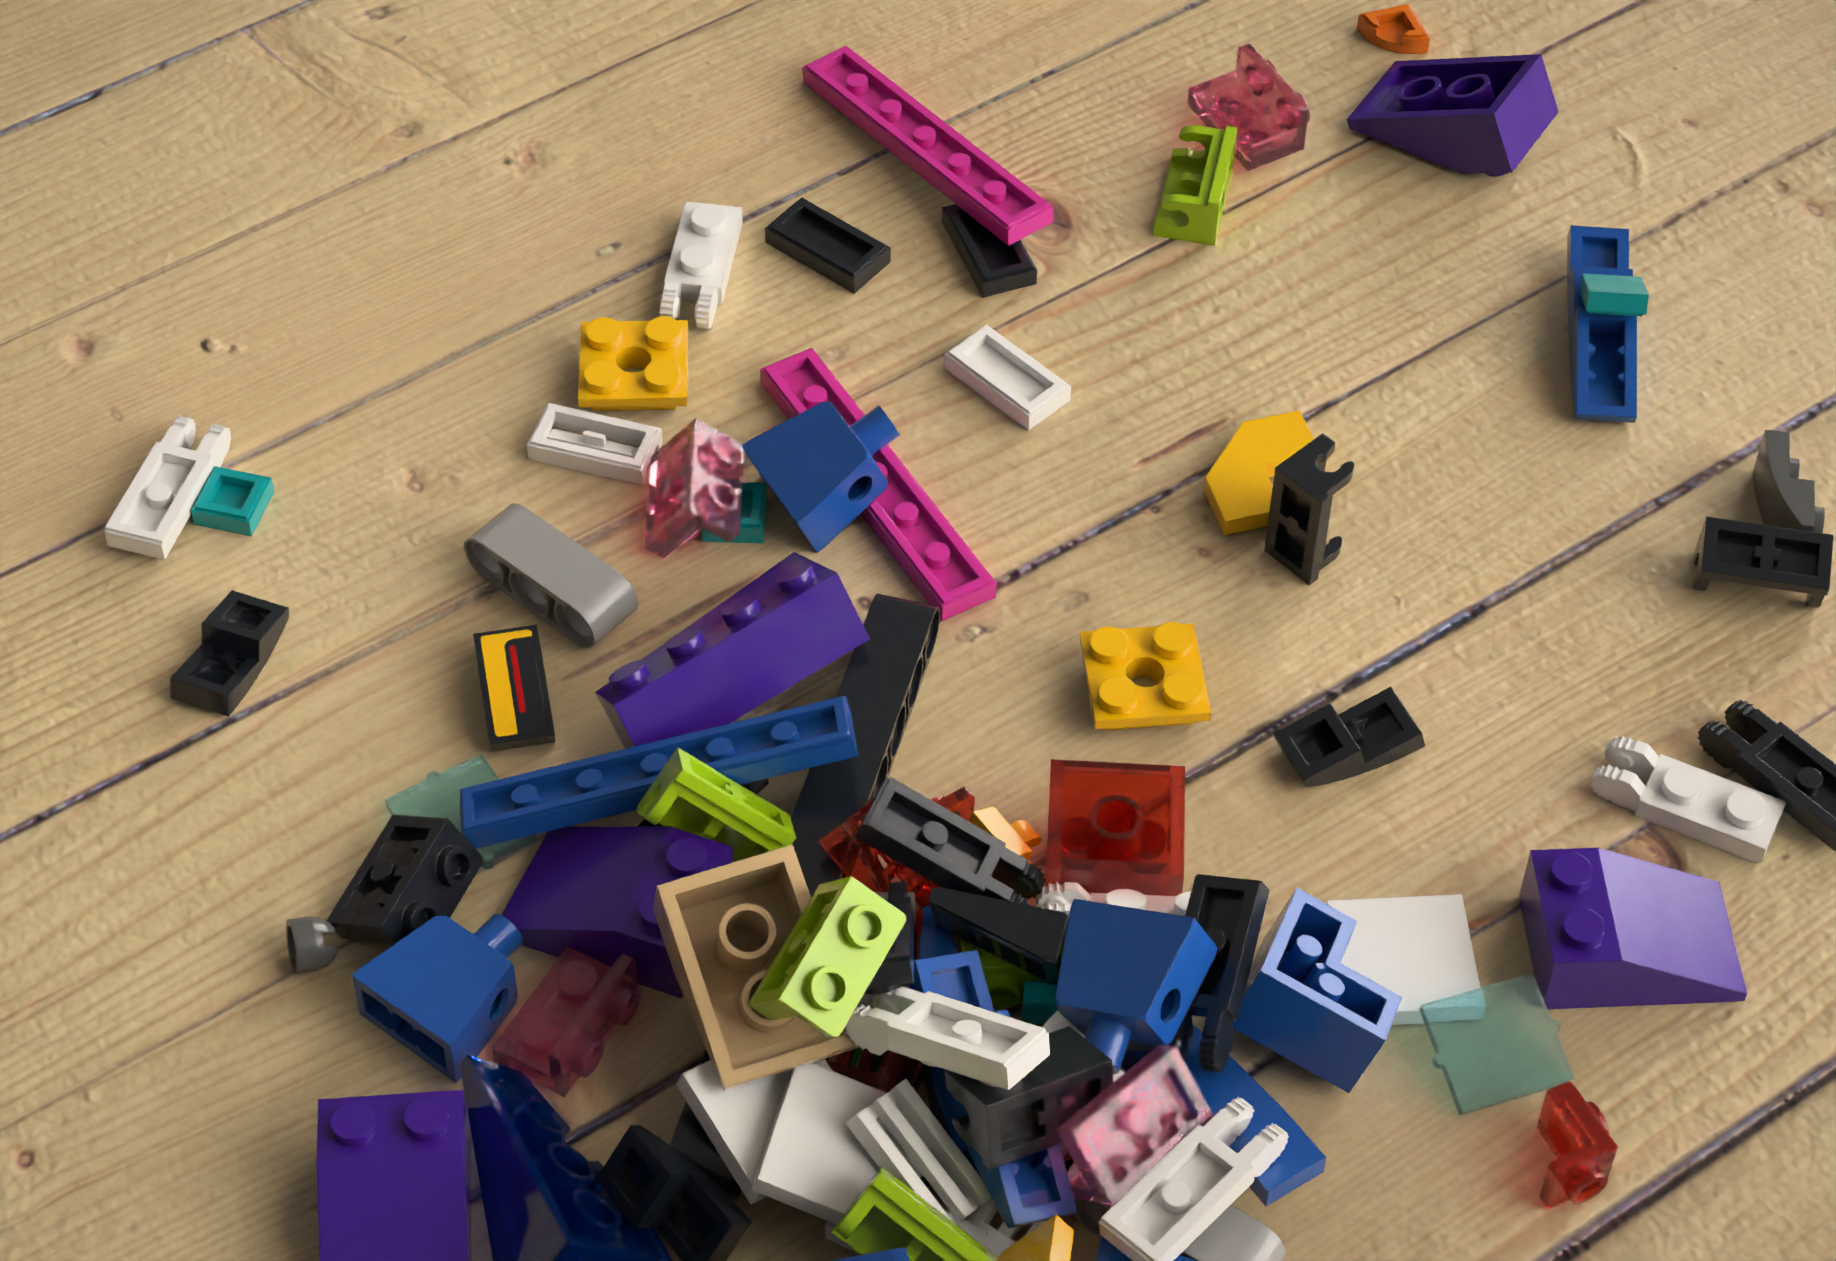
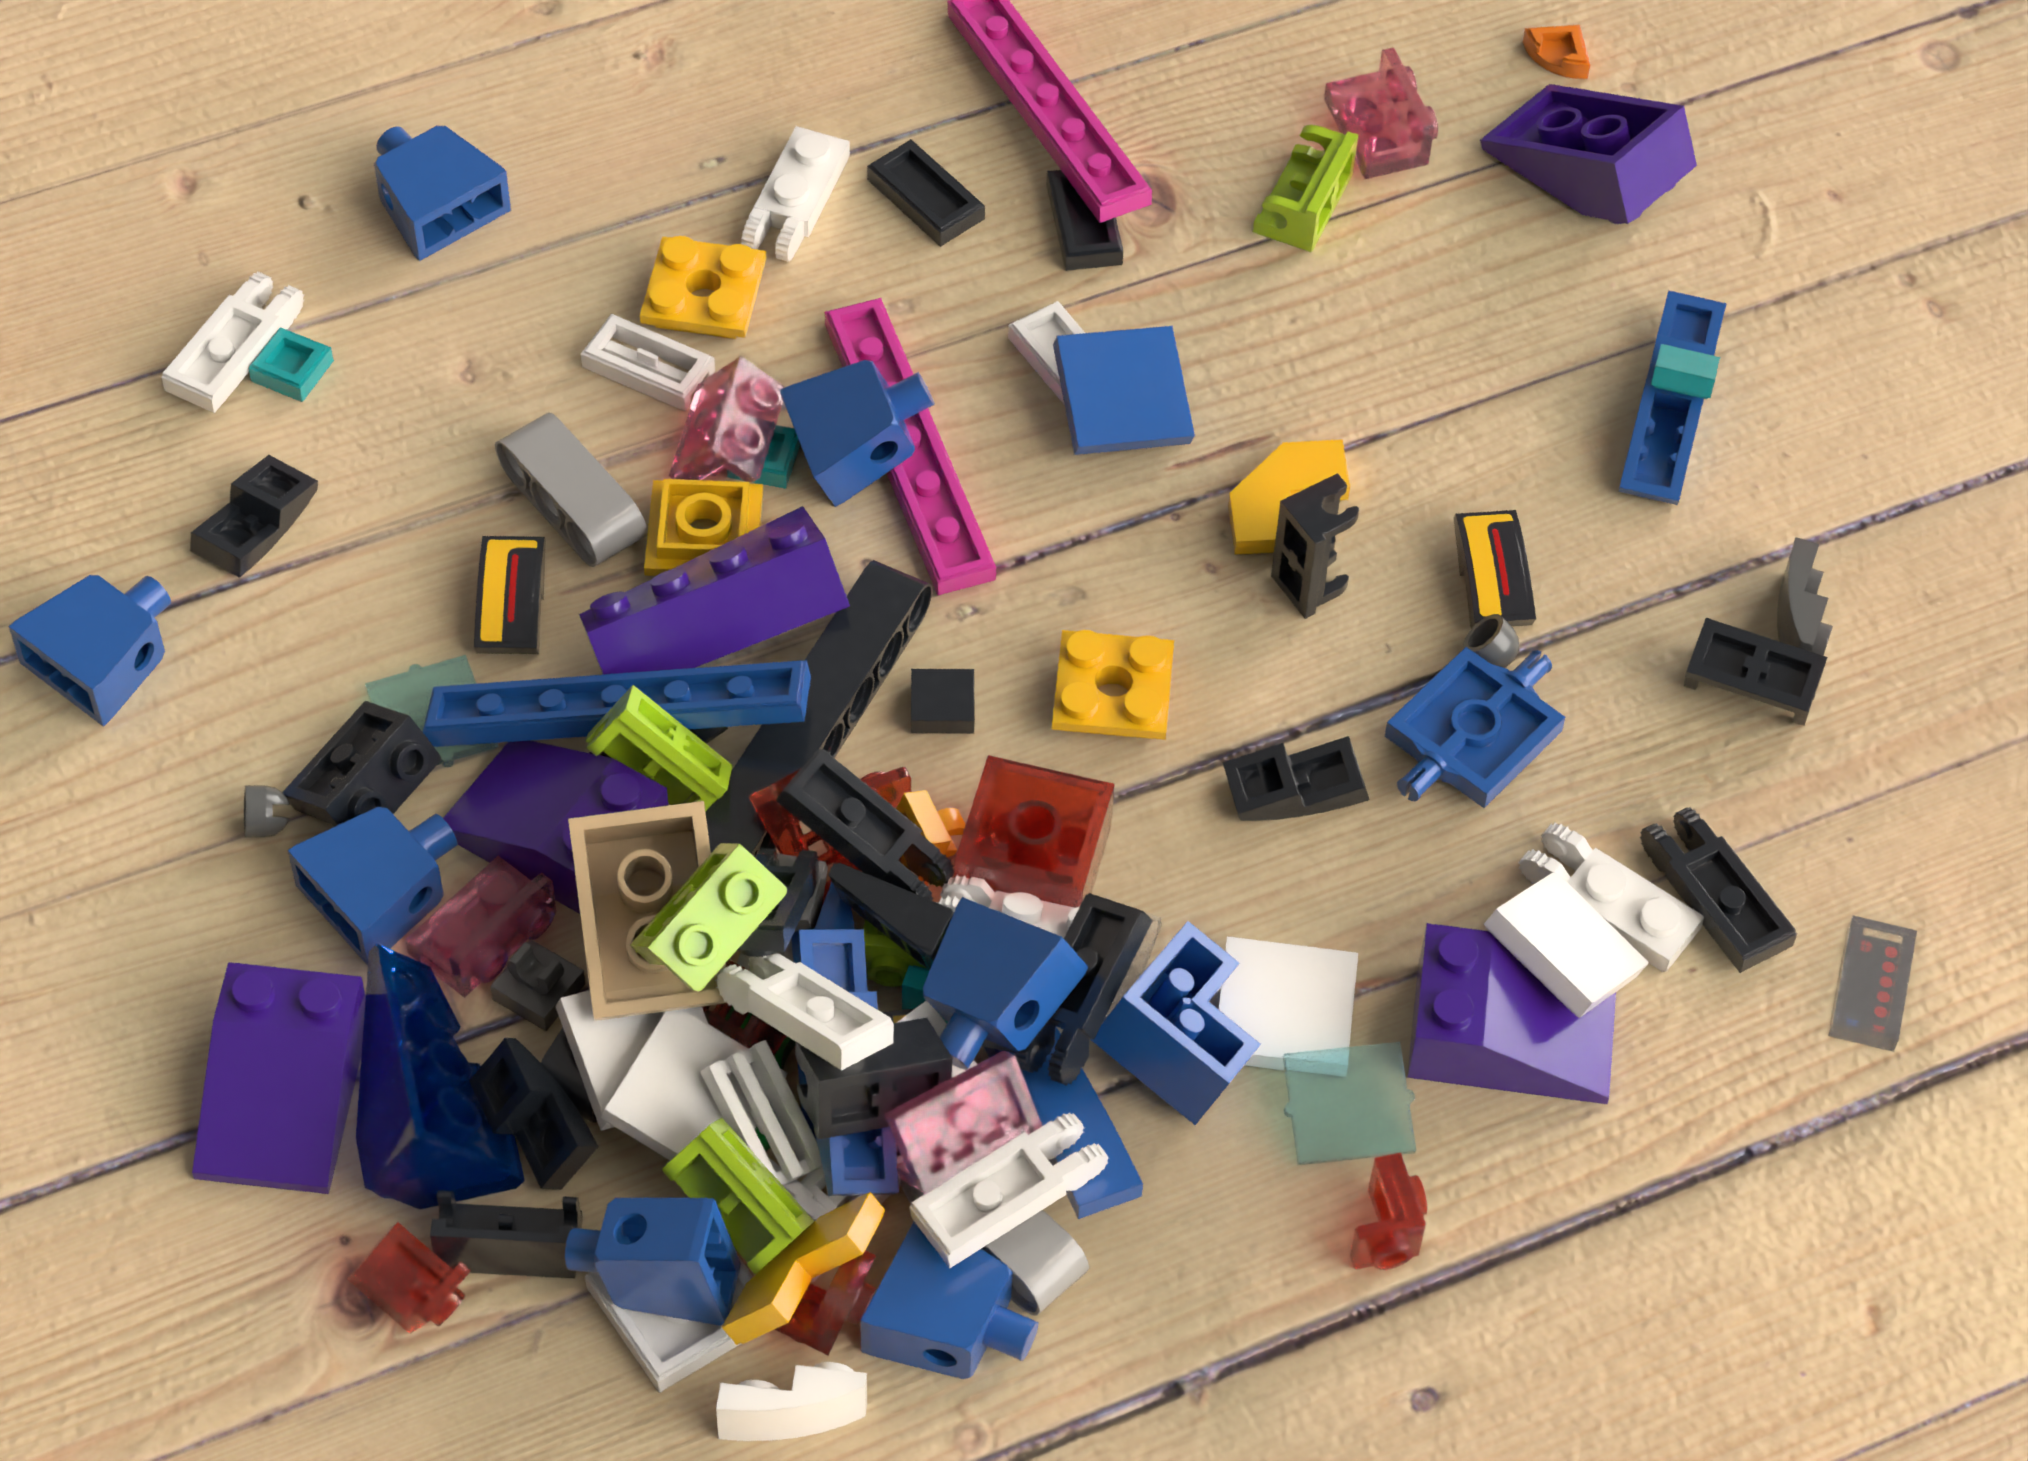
camera: 10 degrees right, 5 degrees up
(93, 803) = (94, 642): none -> blue torso
(343, 309) = (437, 187): none -> blue torso
(640, 1070) = (535, 983): none -> dark grey tile
(665, 570) = (681, 502): none -> yellow piece
(977, 720) = (942, 701): none -> black tile
(1077, 395) = (1123, 390): none -> blue tile
(1484, 508) = (1494, 566): none -> slope
(1501, 576) = (1493, 640): none -> dark grey hinge
(1509, 658) = (1475, 726): none -> blue plate
(1667, 849) = (1566, 944): none -> white tile

